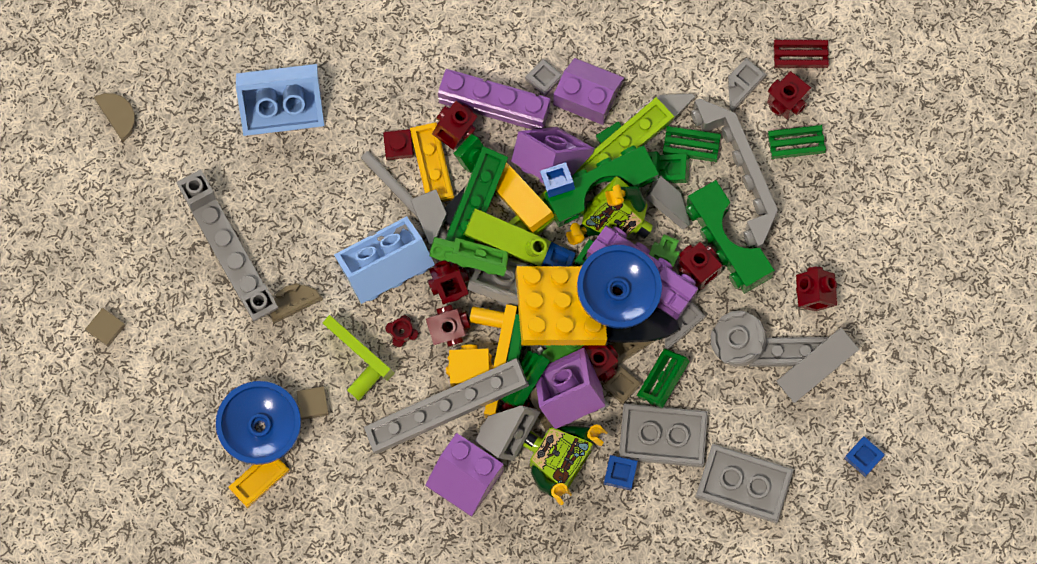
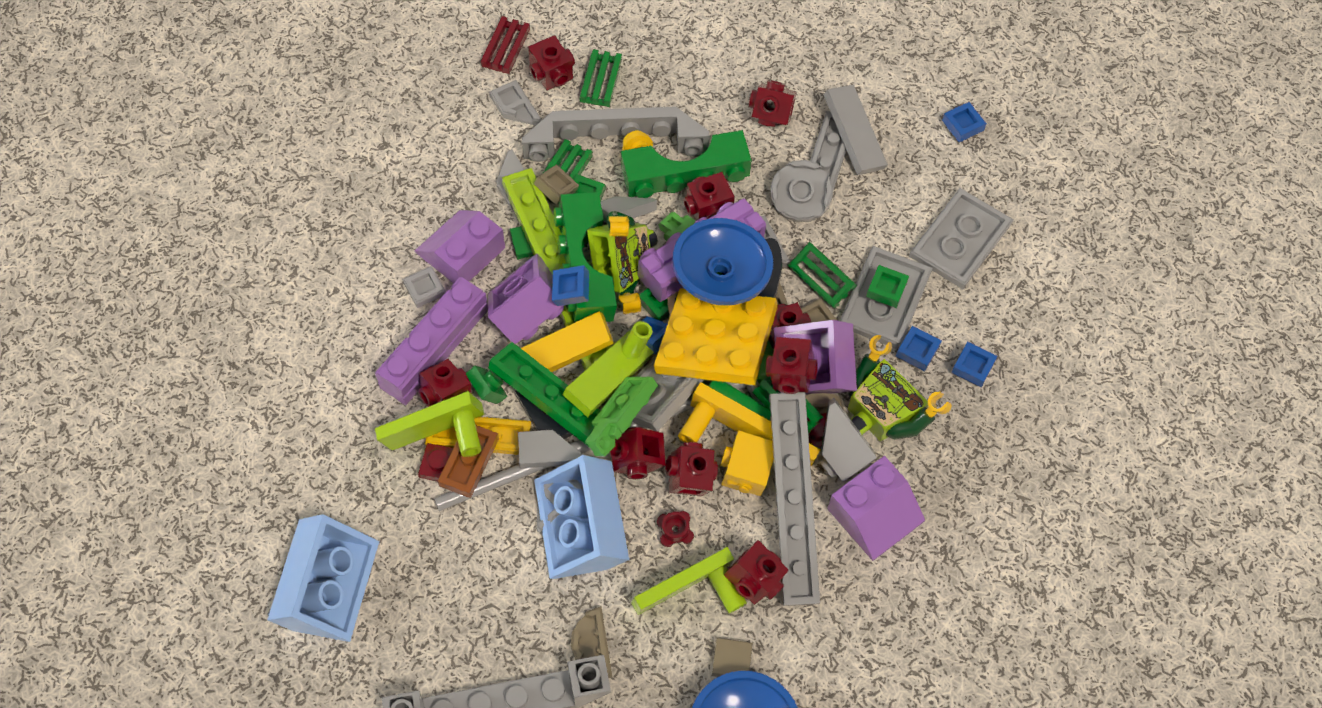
camera: 75 degrees left, 10 degrees down
(374, 387) = (757, 573): none -> dark red brick
(401, 162) = (463, 473): none -> dark orange plate
(431, 138) = (453, 412): none -> lime piece
(541, 366) = (792, 365): none -> dark red brick
(621, 520) = (974, 364): none -> blue plate
(664, 430) = (887, 286): none -> green plate
(666, 141) = (555, 182): none -> dark tan tile
(735, 192) = (636, 139): none -> yellow plate

